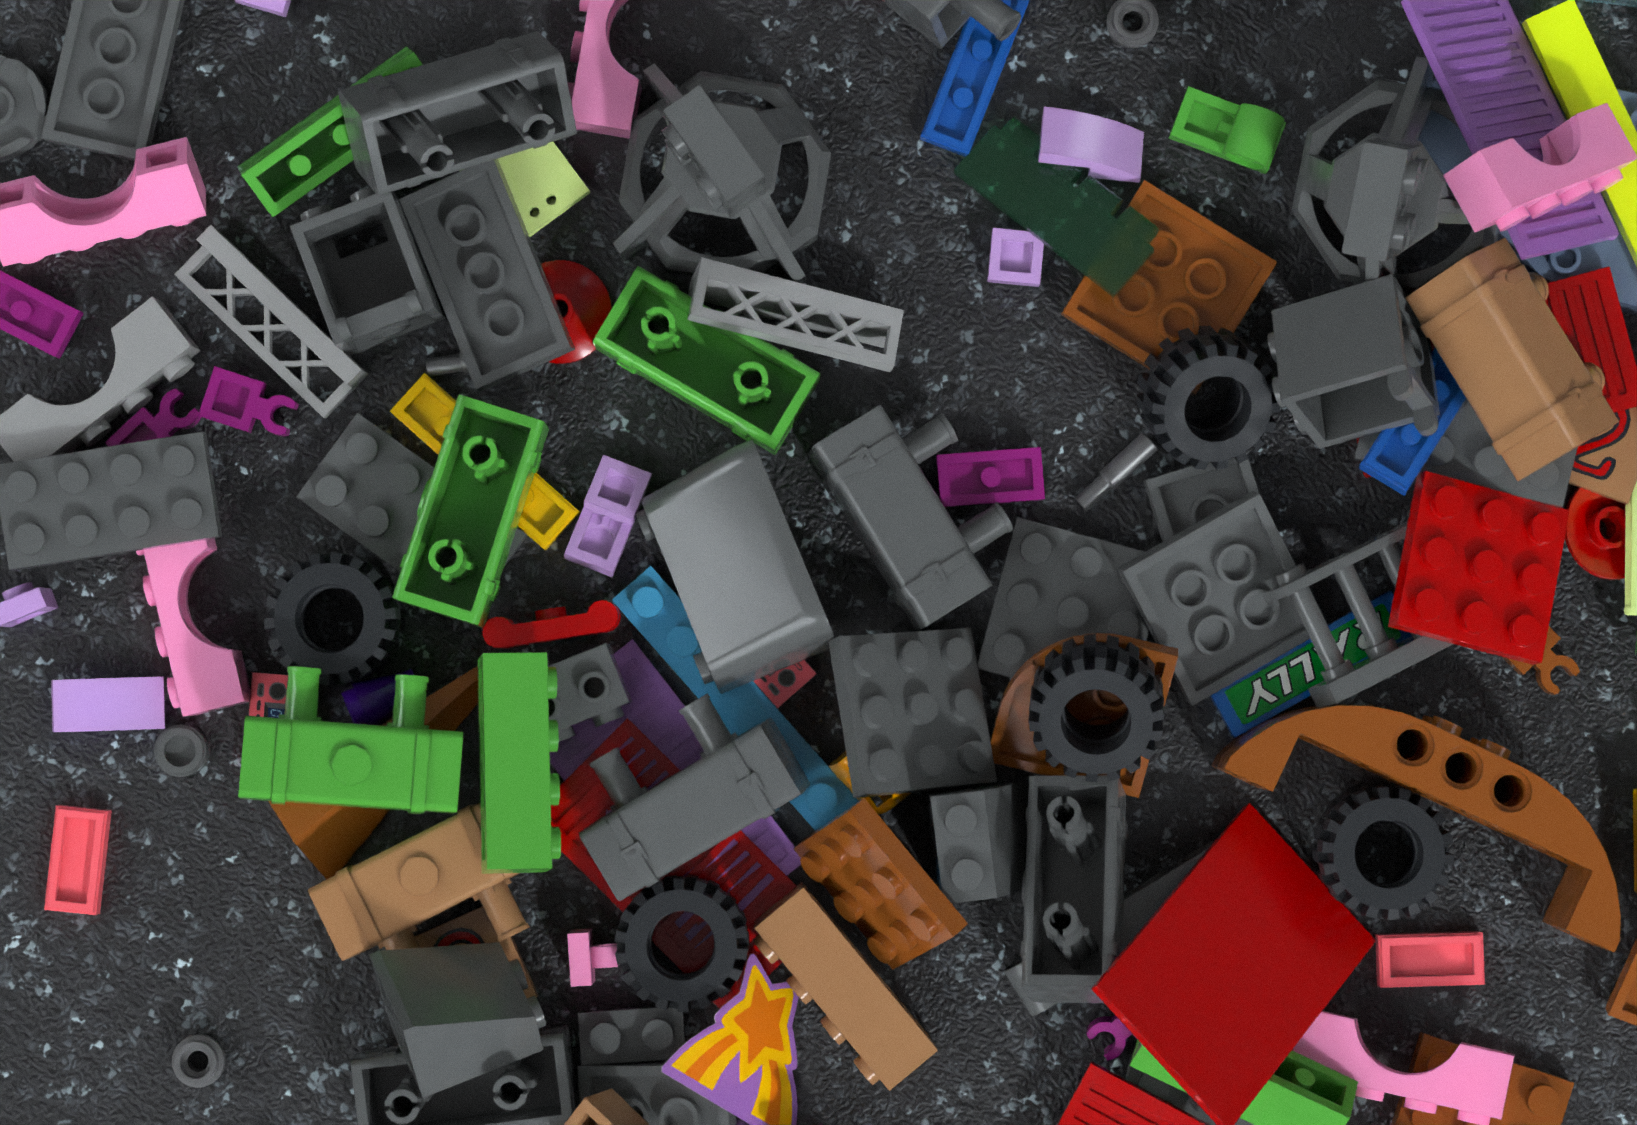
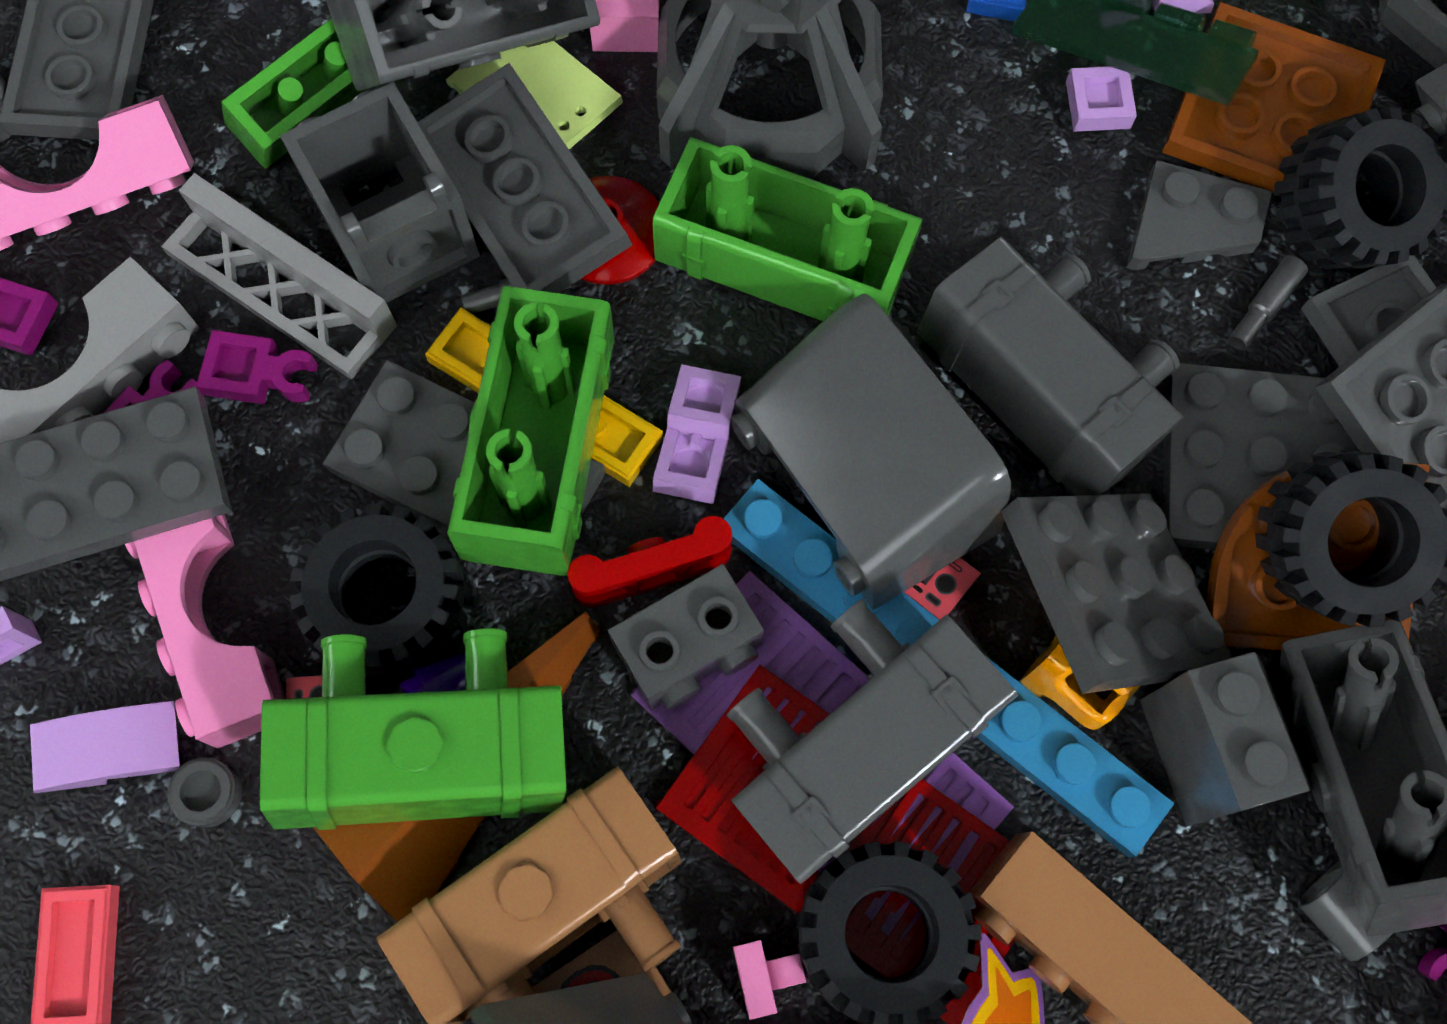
camera: 10 degrees left, 15 degrees down
(516, 763) = (637, 720): bright green brick -> none
(797, 307) = (879, 165): light grey fence -> none
(879, 885) = (1139, 809): dark orange plate -> none
(990, 477) = (1144, 315): magenta plate -> none
(1074, 382) = (1196, 216): none -> dark grey wing

